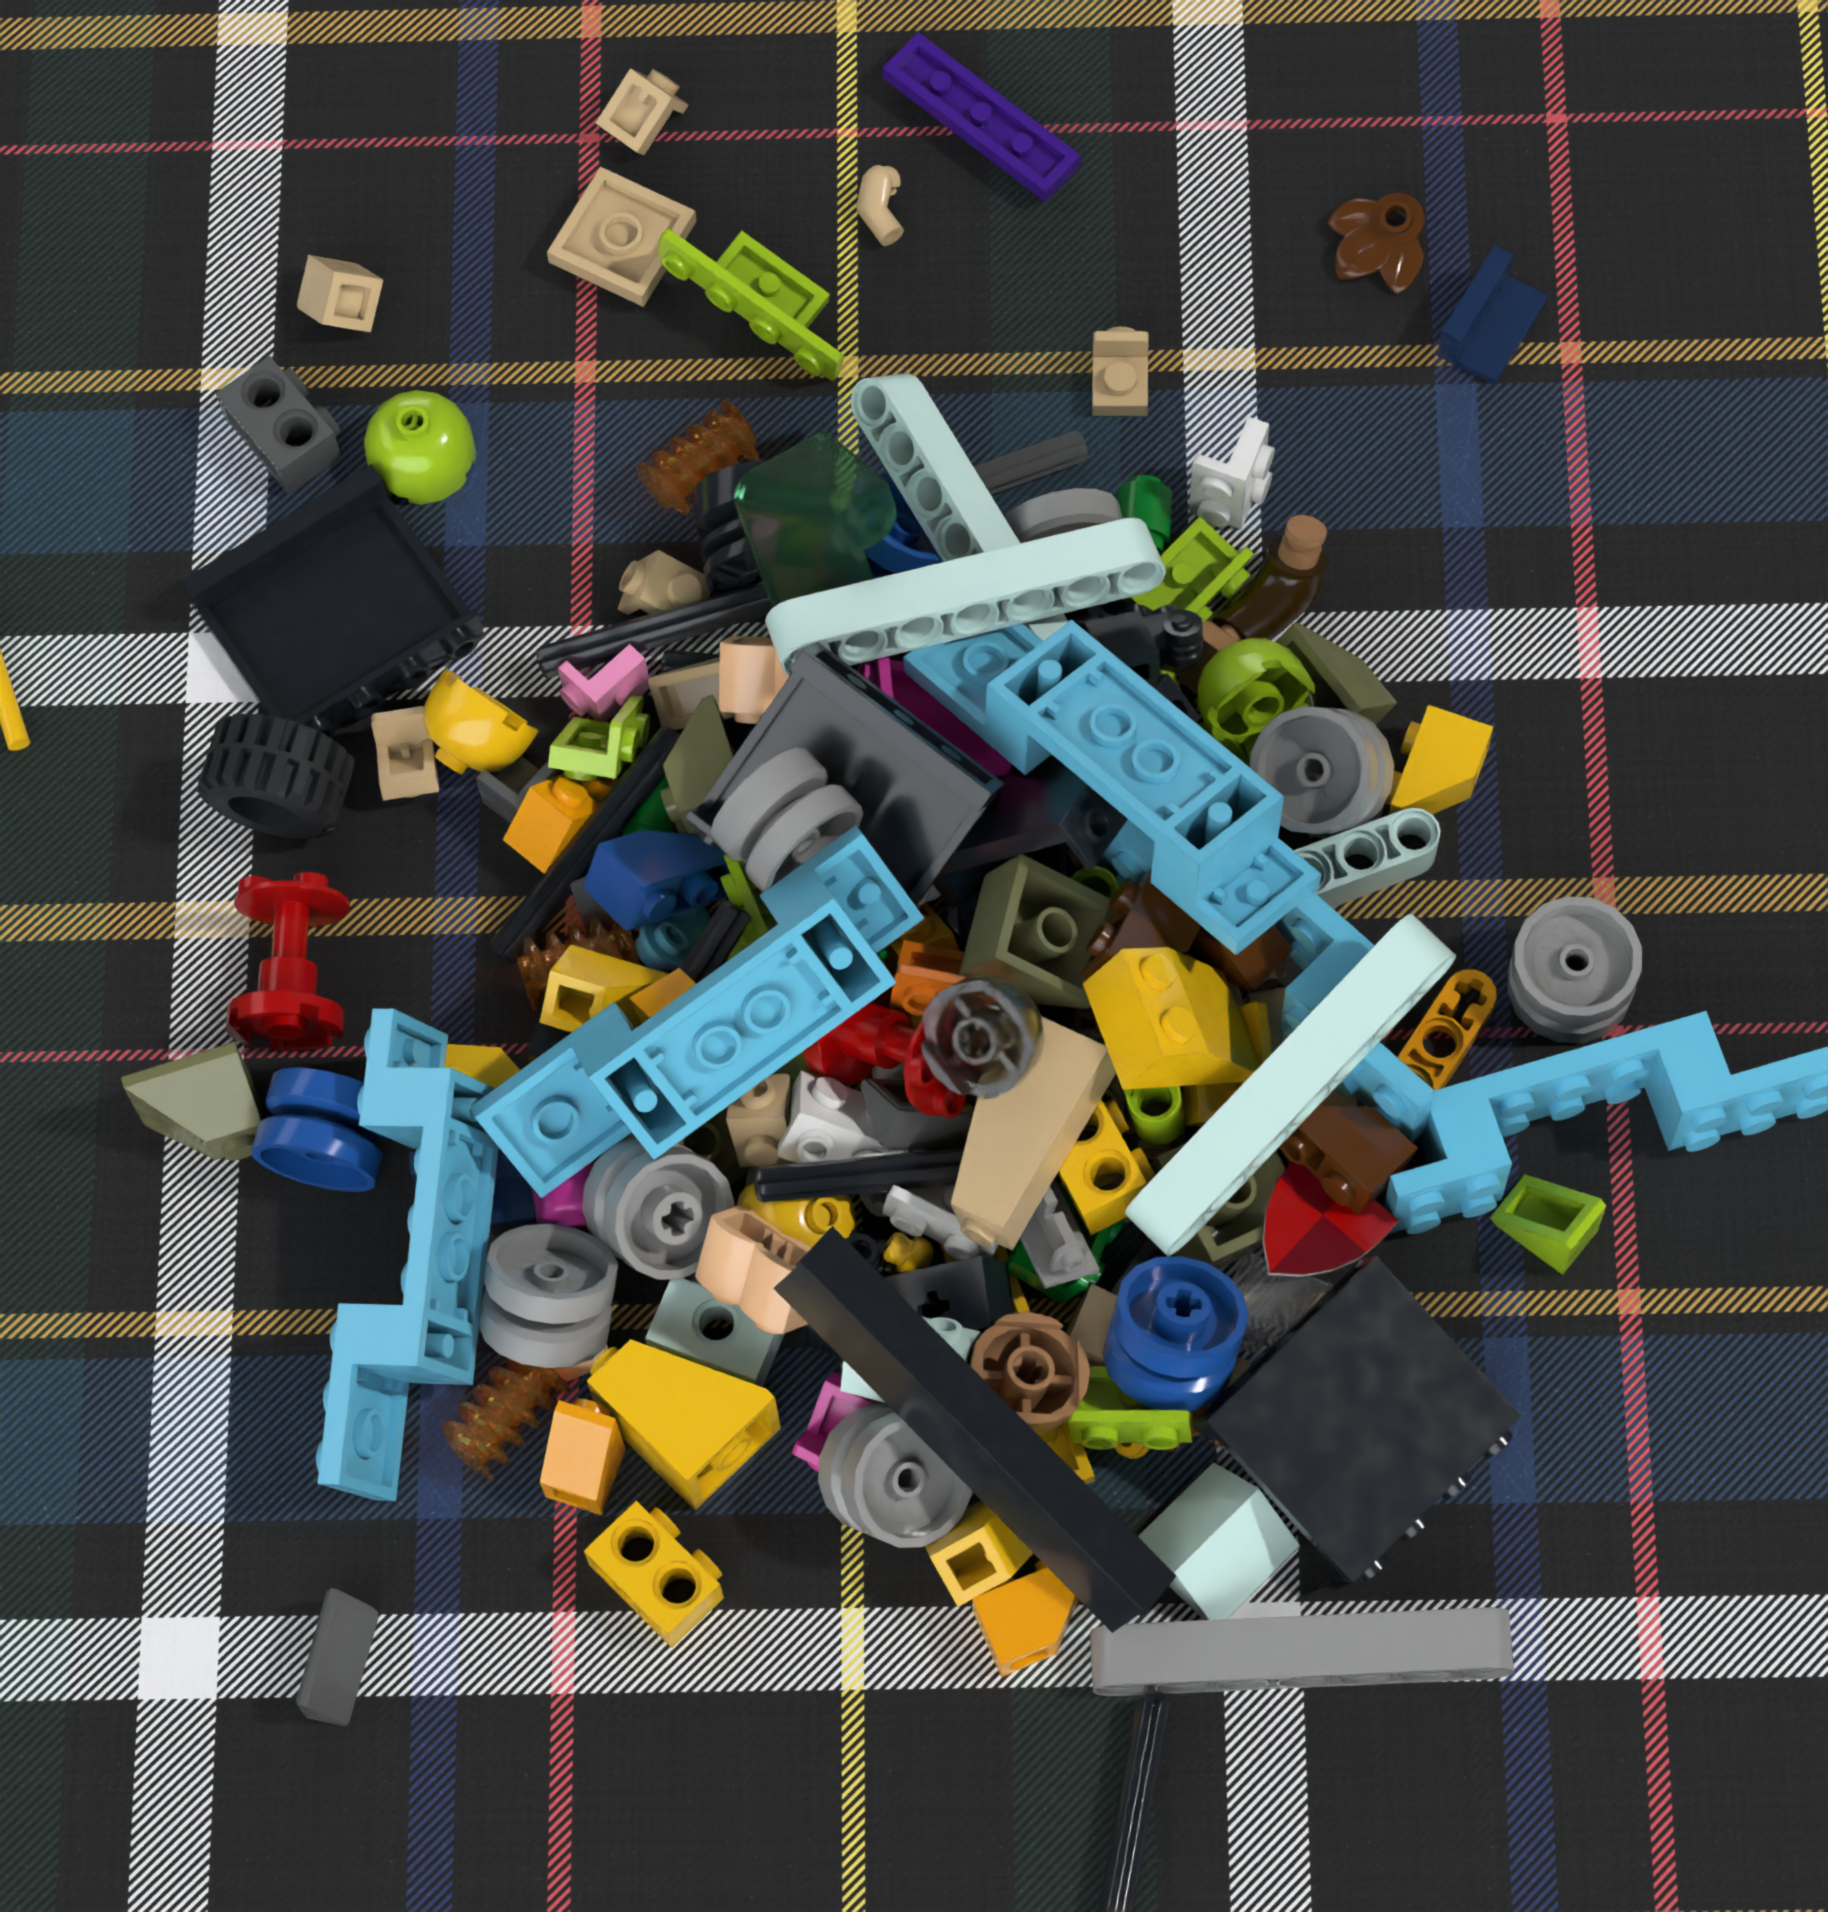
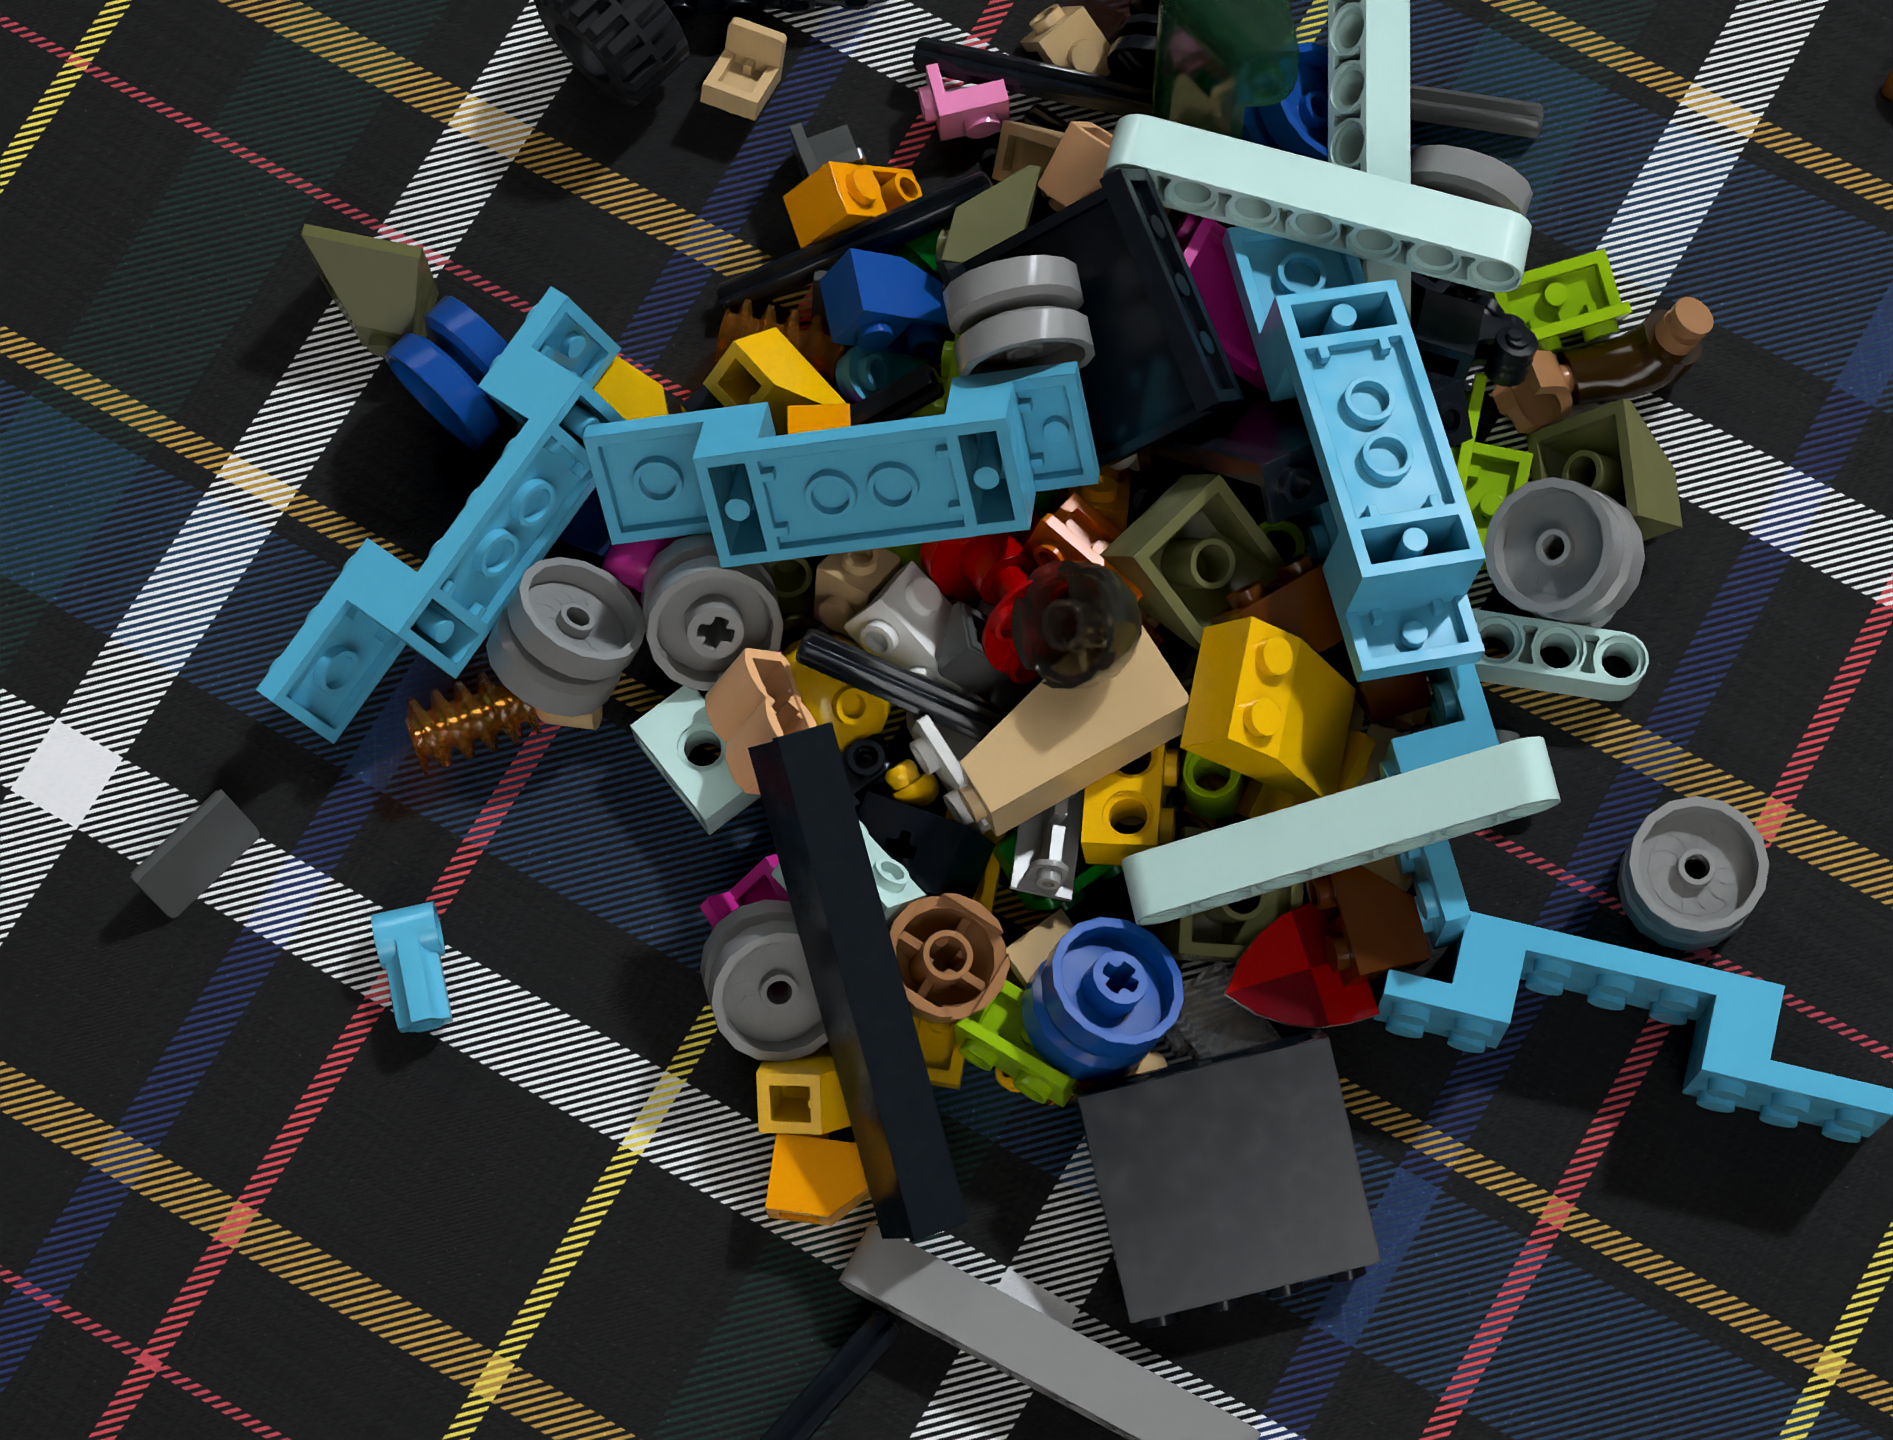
camera: 30 degrees right, 5 degrees up
(287, 982) = (512, 219): red piece -> none
(473, 727) = (820, 78): yellow cylinder -> none
(570, 1630) = (411, 950): none -> medium azure piece
(582, 1455) = (512, 799): light orange slope -> none
(598, 747) = (919, 158): lime bracket -> none
(644, 1581) = (502, 945): yellow brick -> none
(683, 1416) = (617, 816): yellow slope -> none
(1120, 372) = (1616, 72): tan bracket -> none
(1151, 502) = (1557, 219): green brick -> none
(1219, 1542) = (1033, 1212): light aqua slope -> none
(1226, 491) = (1650, 240): white bracket -> none
(1249, 688) = (1544, 436): lime cylinder -> none
(1438, 1071) = (1506, 894): light orange beam -> none
(1441, 763) = (1689, 609): yellow slope -> none
(1550, 1220) = (1525, 1093): lime slope -> none

